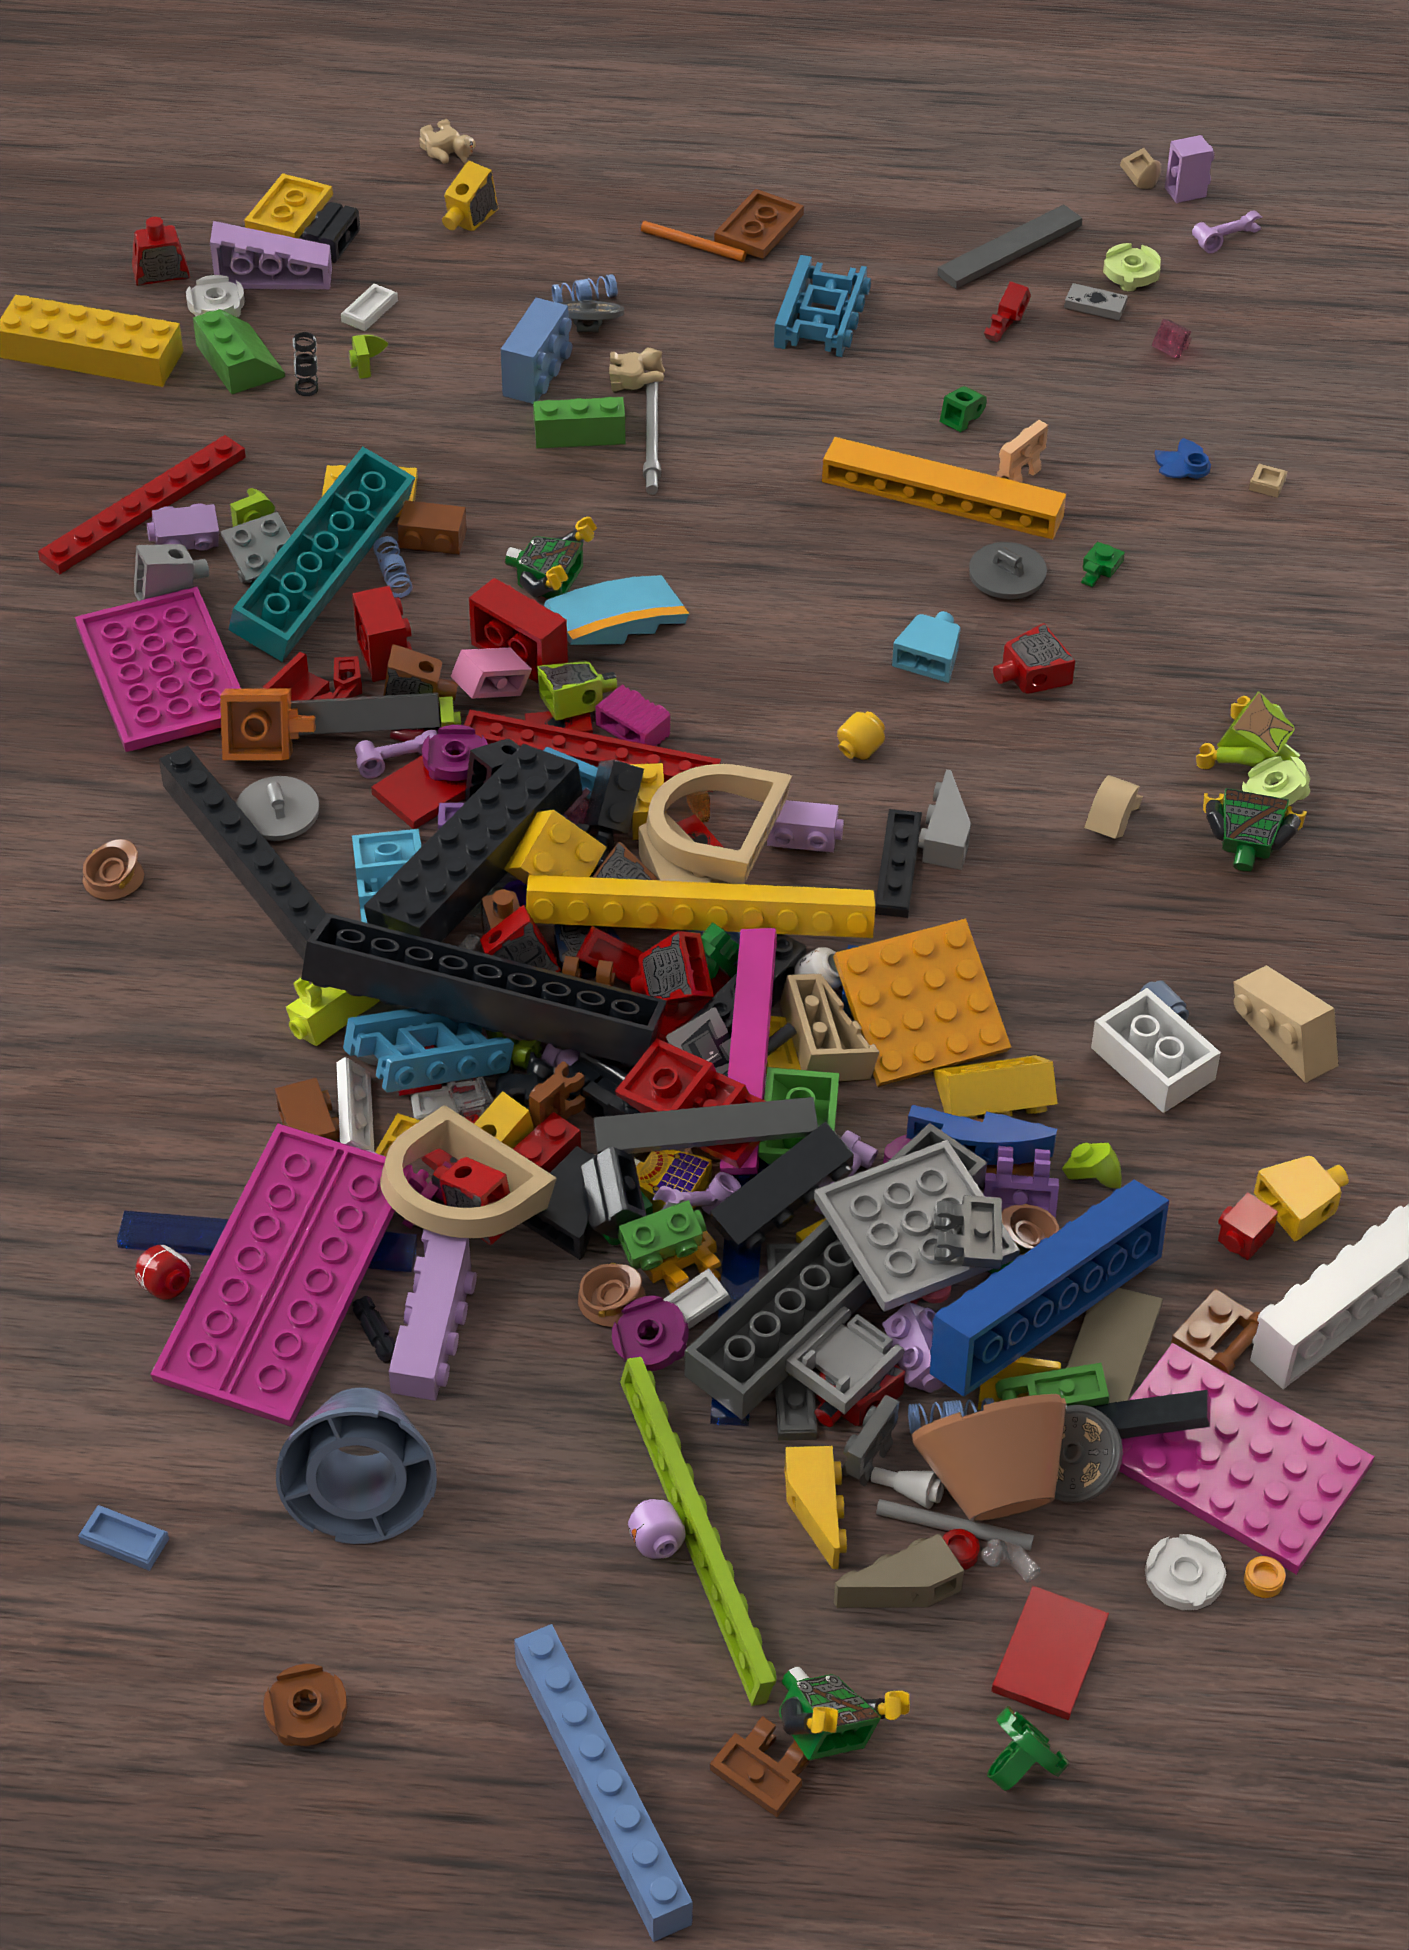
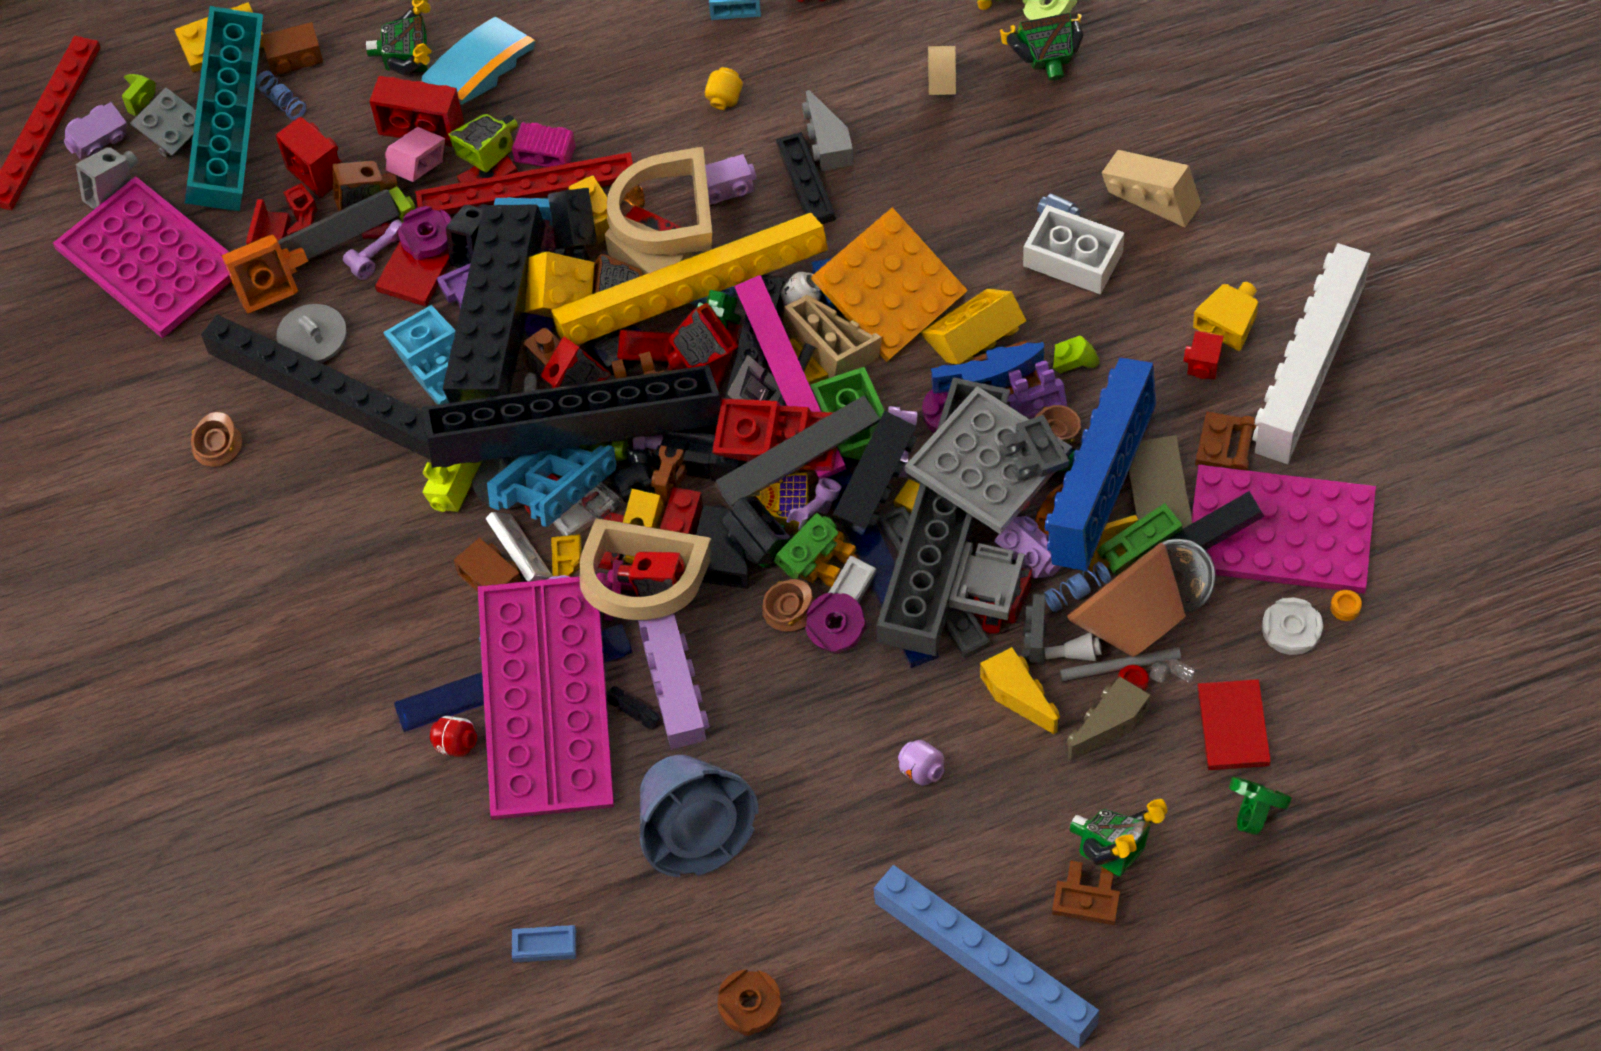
camera: 20 degrees left, 10 degrees up
(701, 1538) = (956, 755): lime plate -> none

